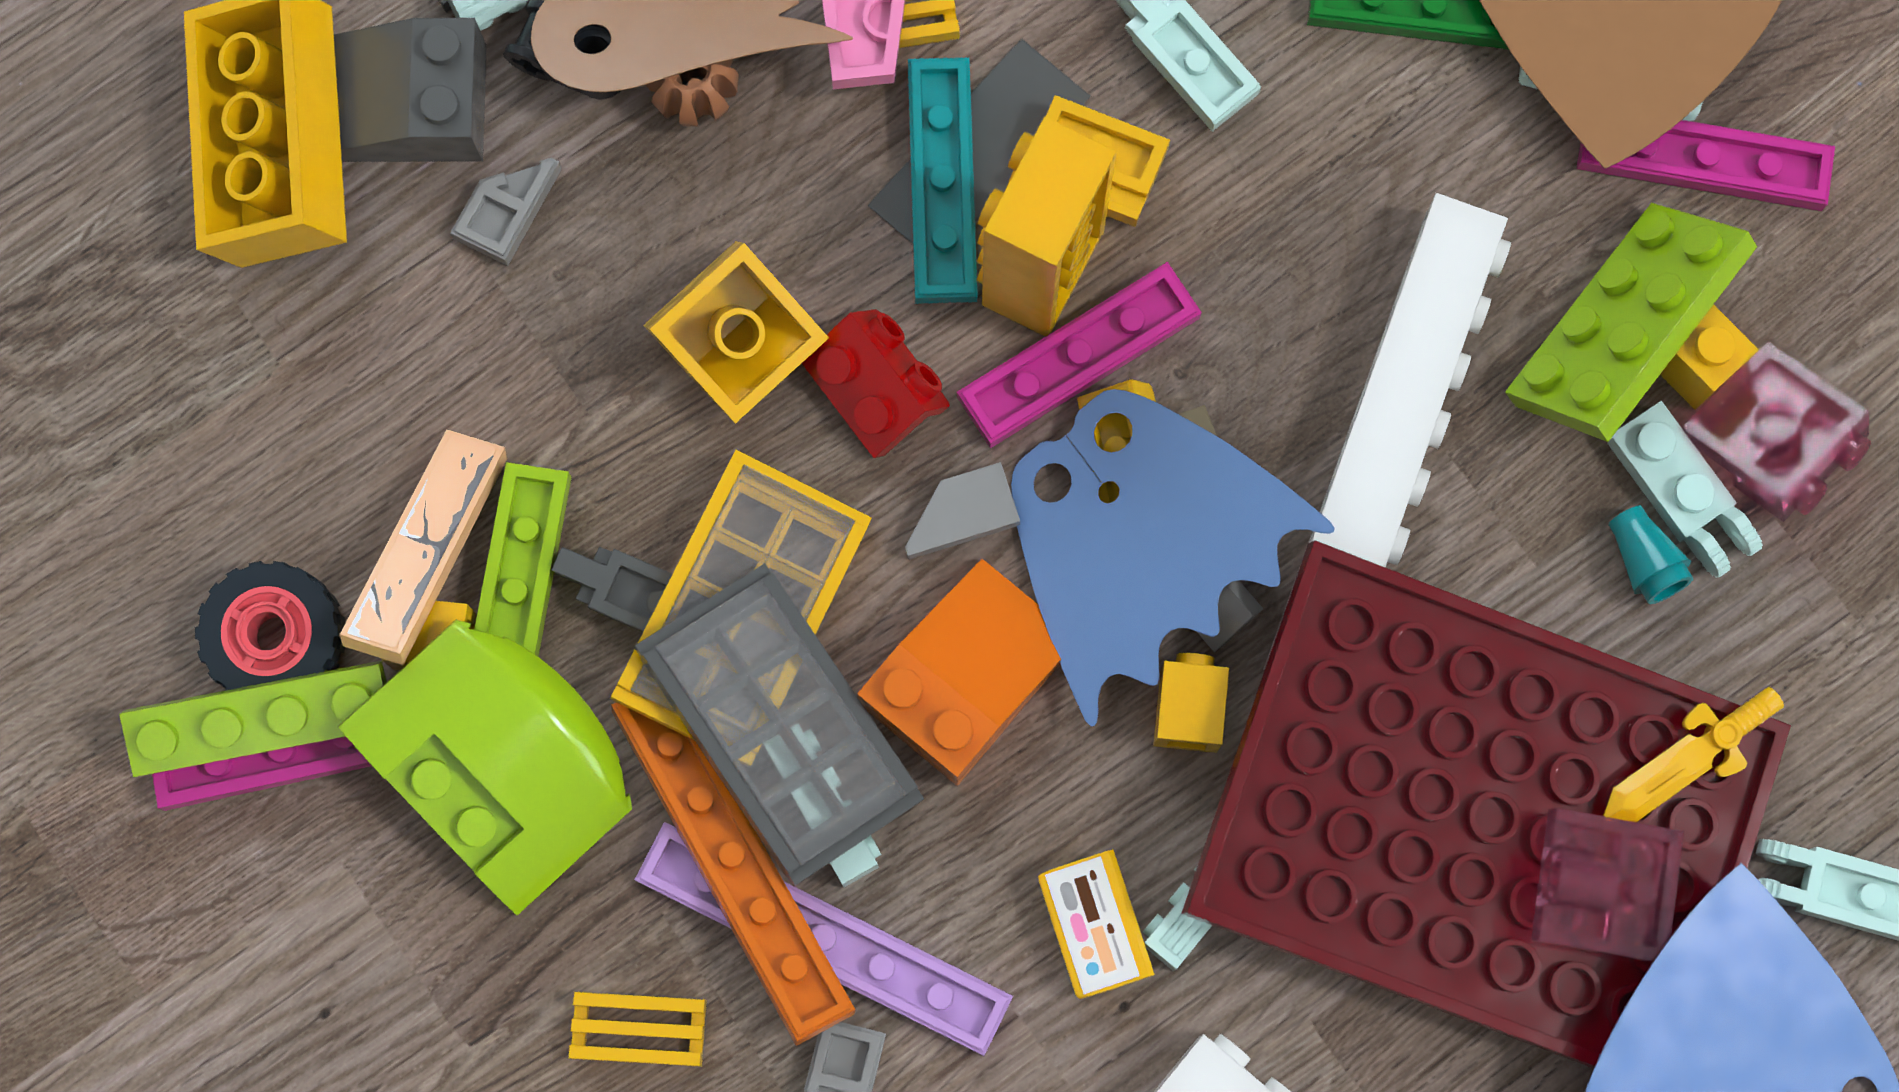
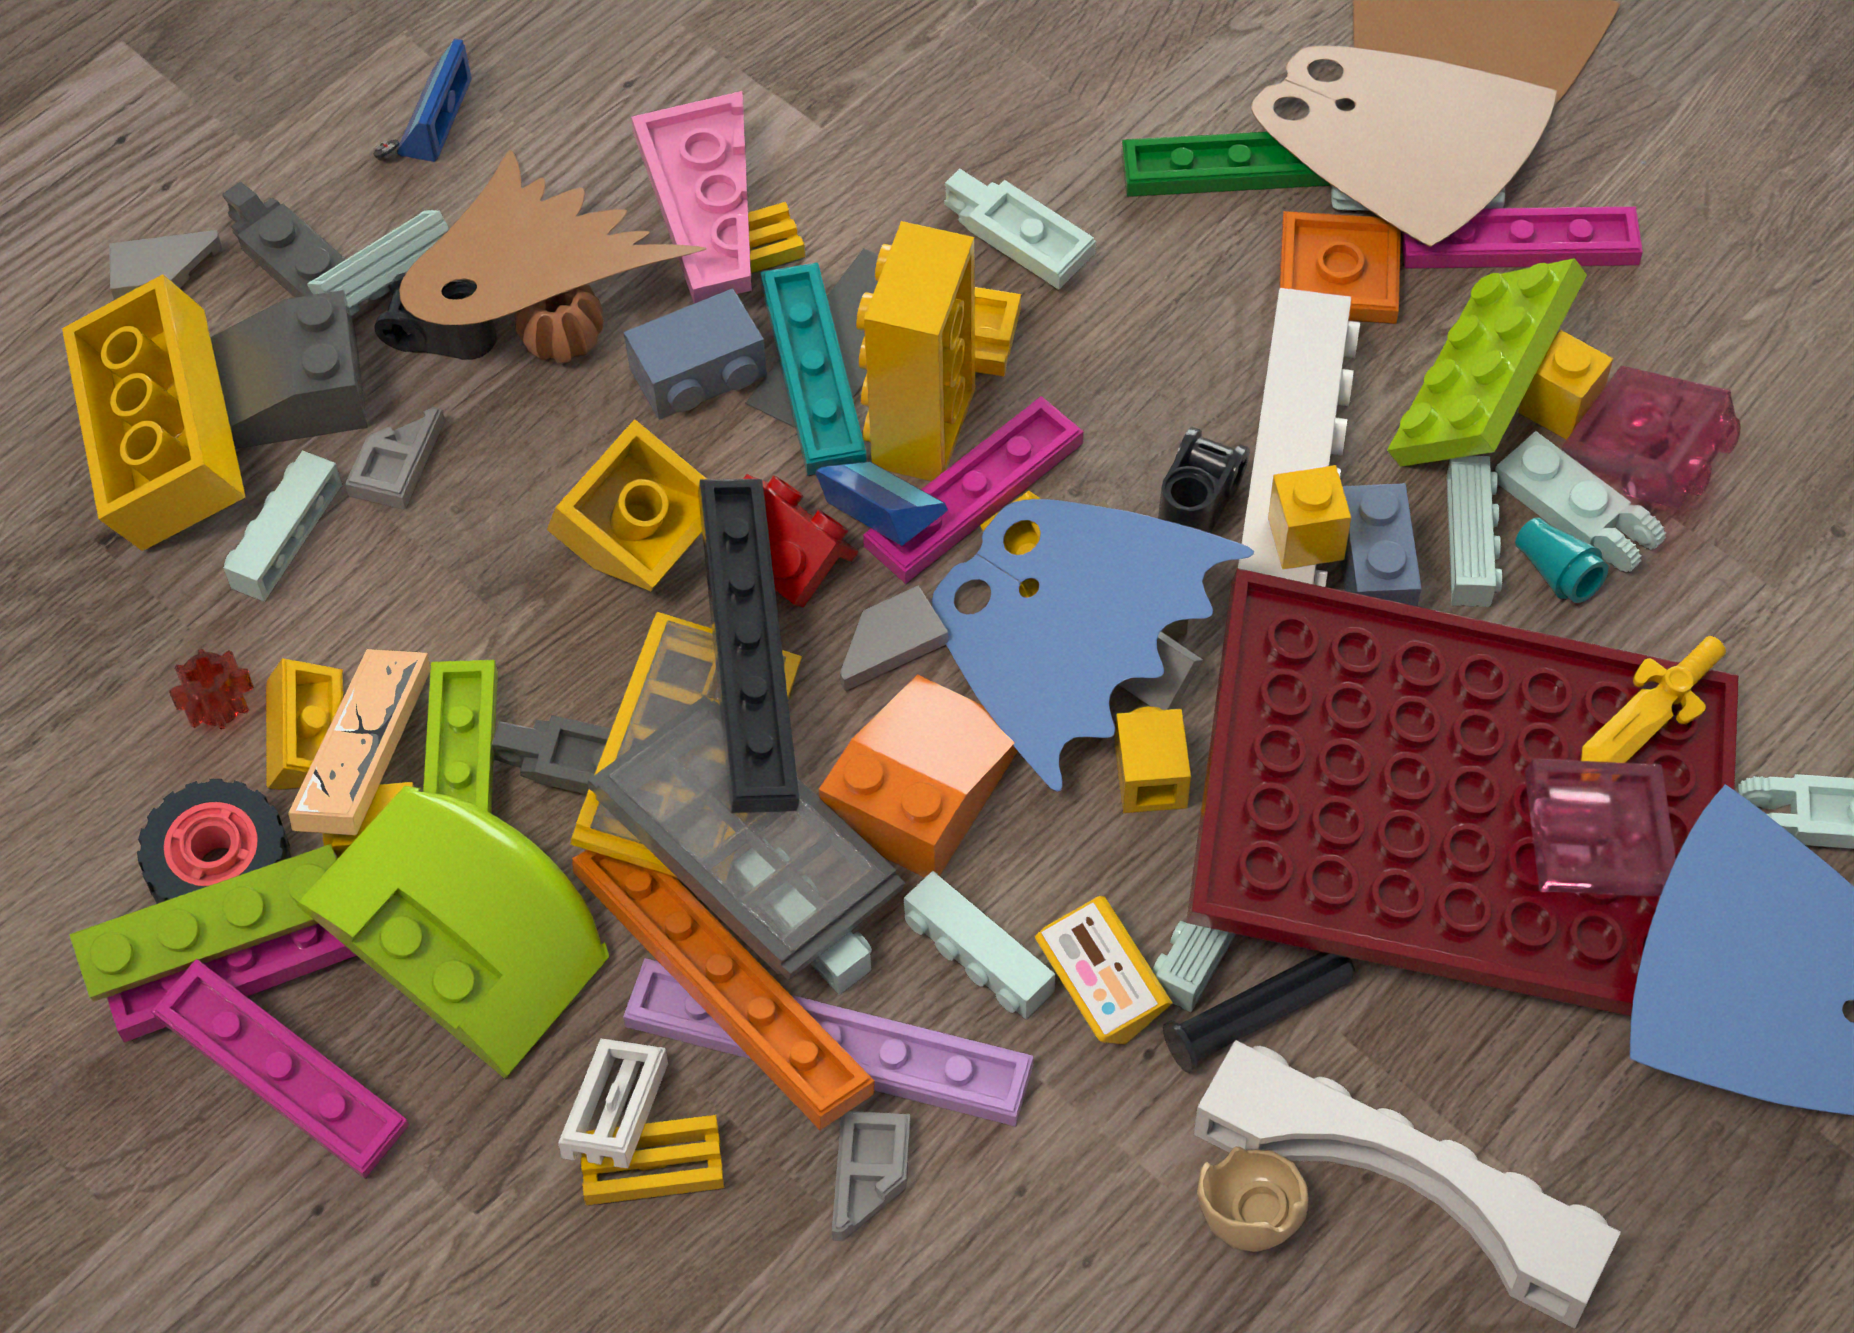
camera: 10 degrees left, 20 degrees down
(275, 439) = (211, 689): none -> clear red gear
(304, 874) = (280, 1068): none -> dark pink tile
(373, 493) = (298, 715): none -> yellow slope
(382, 268) = (282, 525): none -> light aqua piece
(587, 1019) = (601, 1144): none -> white tile
(815, 517) = (747, 647): none -> black tile
(825, 148) = (696, 354): none -> sand blue brick
(982, 358) = (879, 499): none -> blue slope
(985, 869) = (978, 945): none -> light aqua piece
(1226, 990) = (1256, 1008): none -> black axle
(1309, 392) = (1201, 481): none -> black piece
(1401, 489) = (1309, 517): none -> yellow brick
(1465, 522) = (1381, 544): none -> sand blue brick
(1508, 158) = (1344, 258): none -> orange tile
(1566, 507) = (1471, 531): none -> light aqua piece

